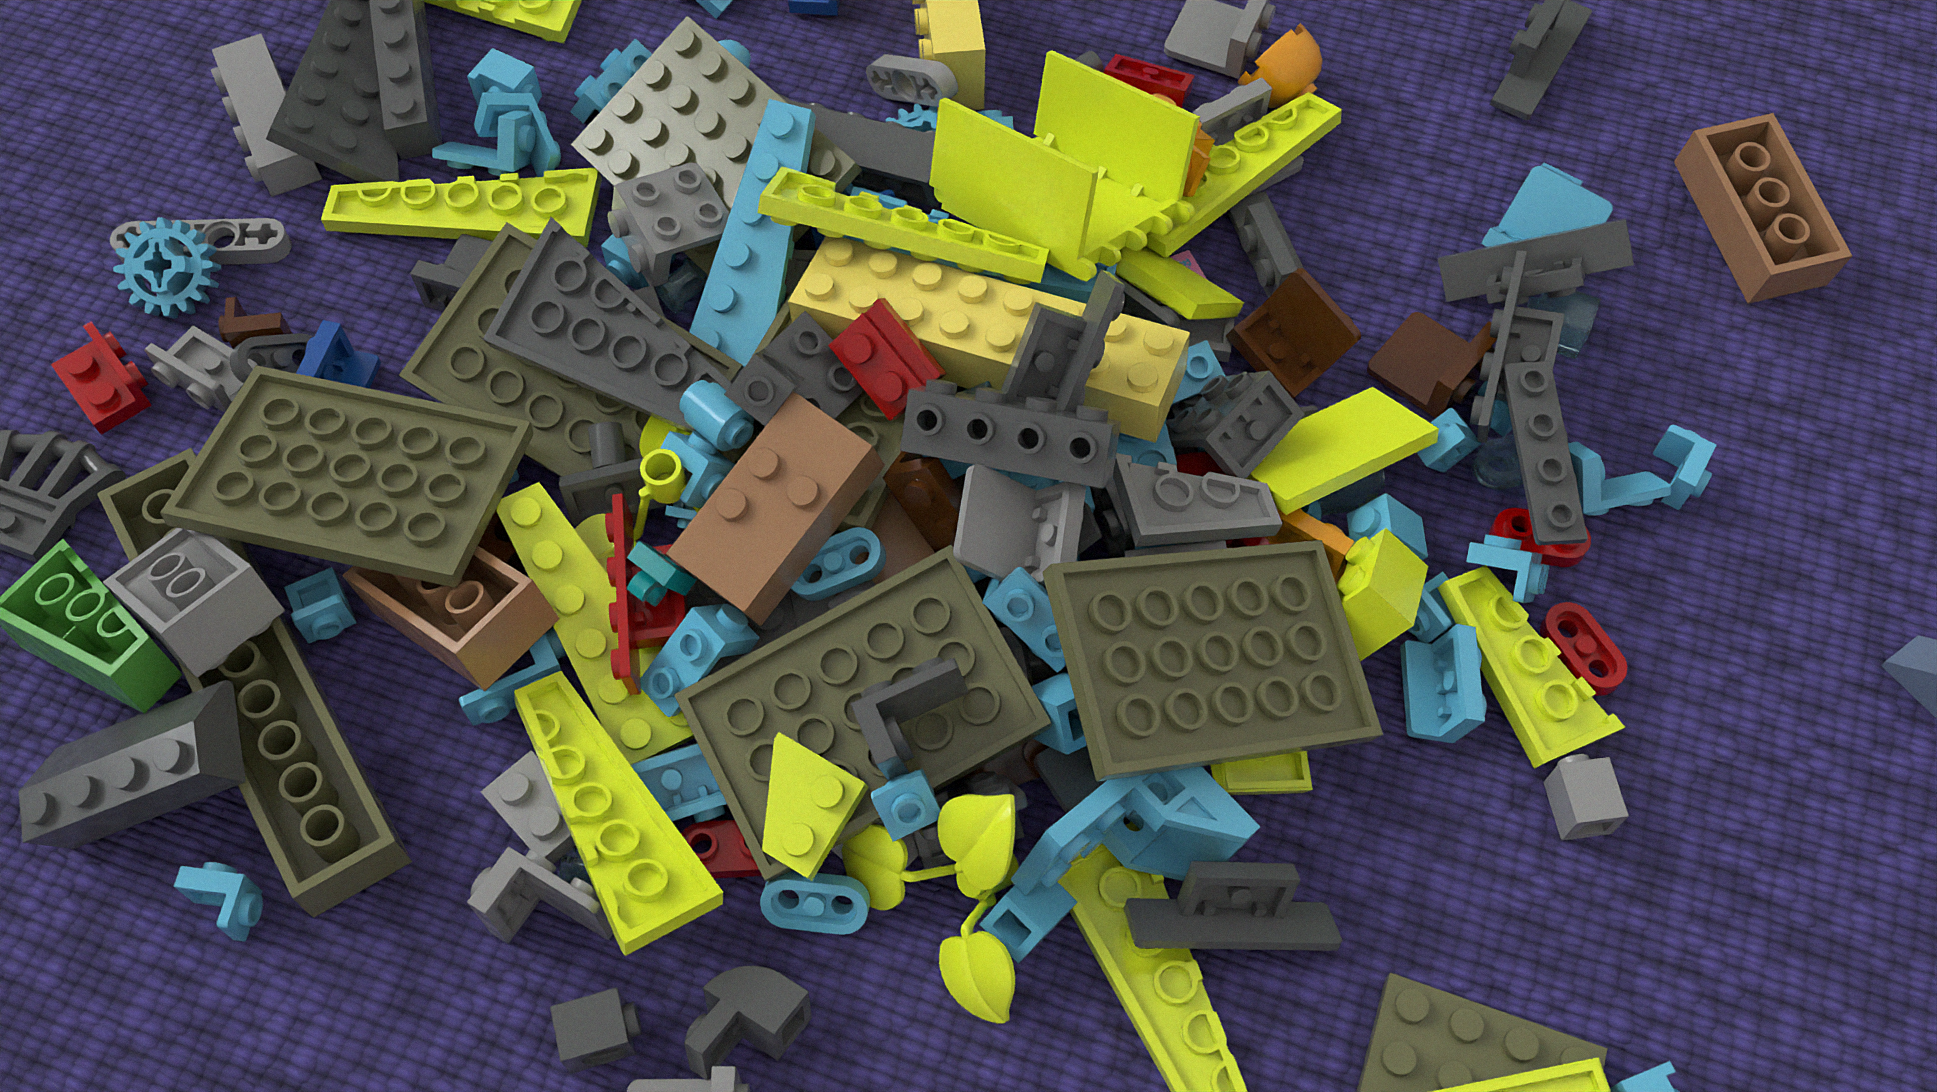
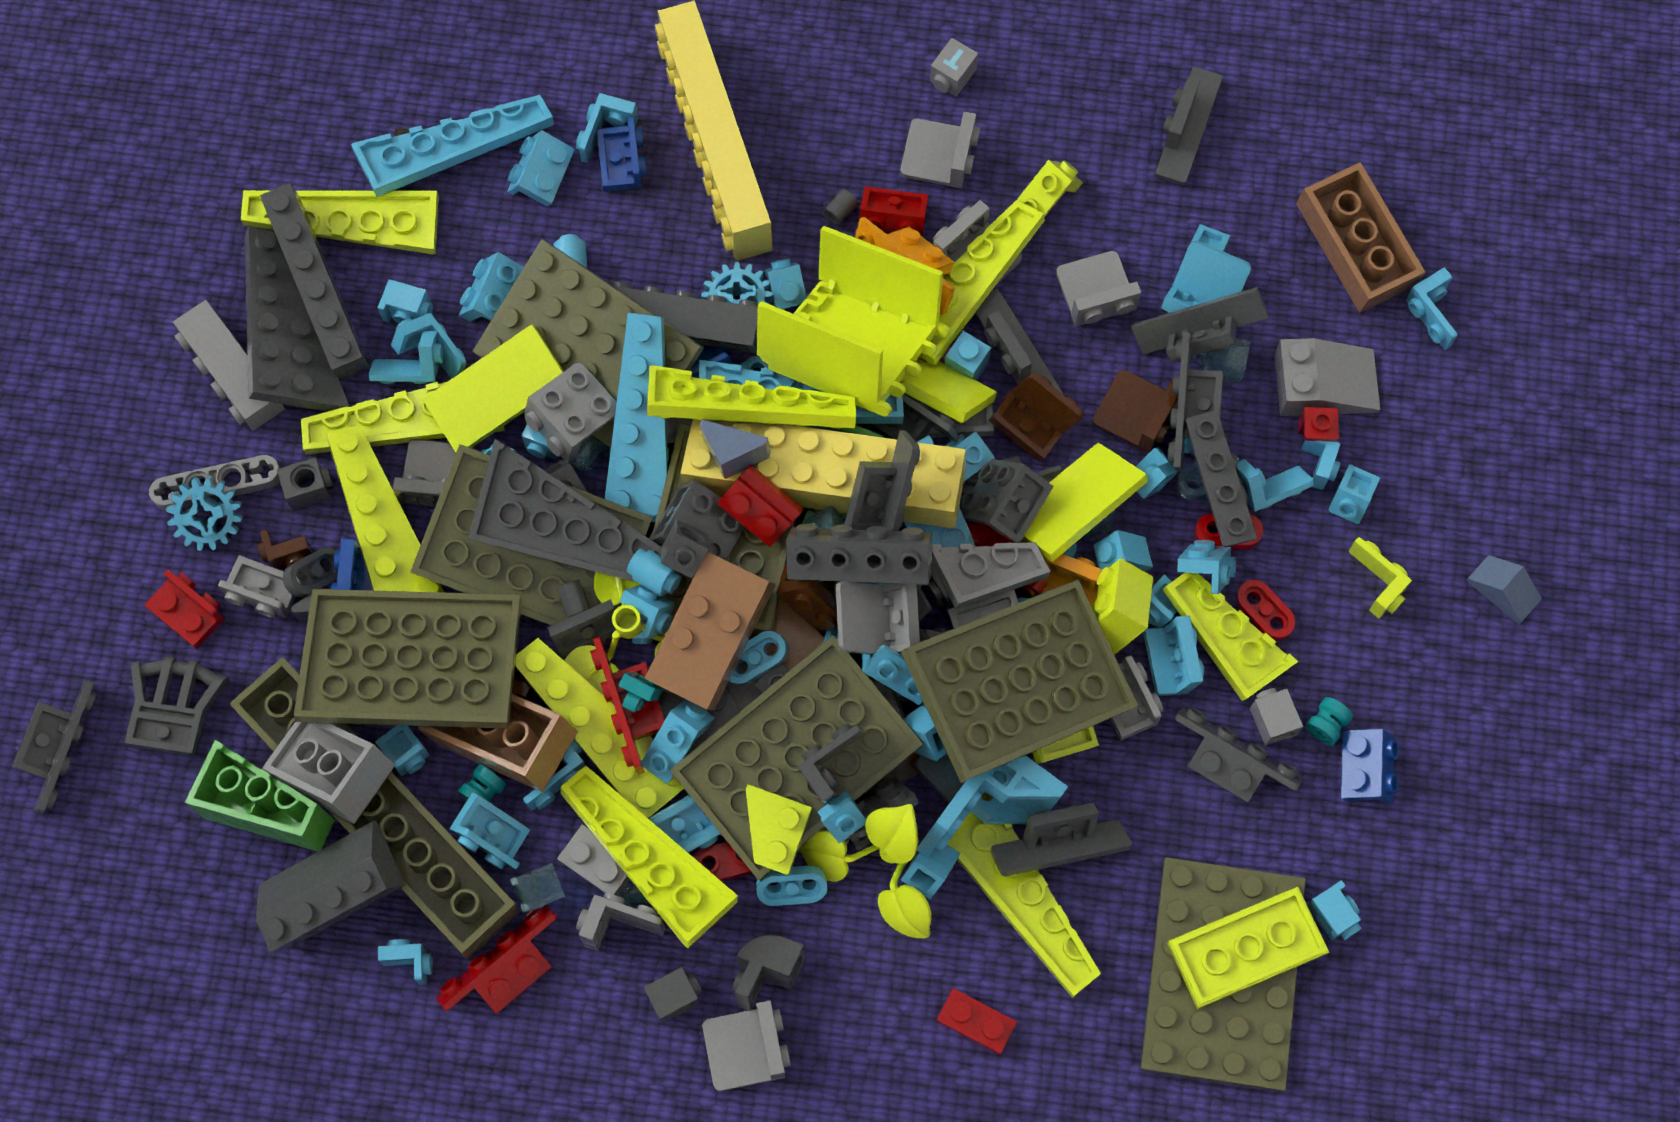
camera: 10 degrees left, 10 degrees up
(309, 259) = (295, 474): none -> dark grey brick
(361, 944) = (506, 968): none -> red bracket
(383, 299) = (376, 515): none -> neon yellow wing
(398, 734) = (491, 830): none -> medium azure bracket
(407, 689) = (487, 779): none -> teal wheel
(440, 828) = (537, 887): none -> clear light blue brick
(579, 179) = (493, 389): none -> neon yellow tile
(868, 271) = (733, 447): none -> sand blue slope
(912, 79) = (716, 247): light grey beam -> none
(1214, 255) = (968, 356): none -> medium azure brick
(1288, 67) = (997, 181): light orange cylinder -> none
(1354, 85) = (1050, 185): none -> neon yellow bracket
(1386, 756) = (1149, 705): none -> light grey bracket
(1399, 214) = (1097, 288): none -> light grey bracket
(1508, 852) = (1231, 761): none -> dark grey bracket
(1665, 819) = (1329, 721): none -> teal wheel
(1686, 415) = (1319, 424): none -> red bracket
(1694, 367) = (1325, 376): none -> light grey slope
(1721, 897) = (1369, 766): none -> bracket
(1725, 520) = (1354, 494): none -> medium azure bracket
(1765, 626) = (1389, 572): none -> neon yellow bracket
(1843, 304) = (1422, 306): none -> medium azure bracket

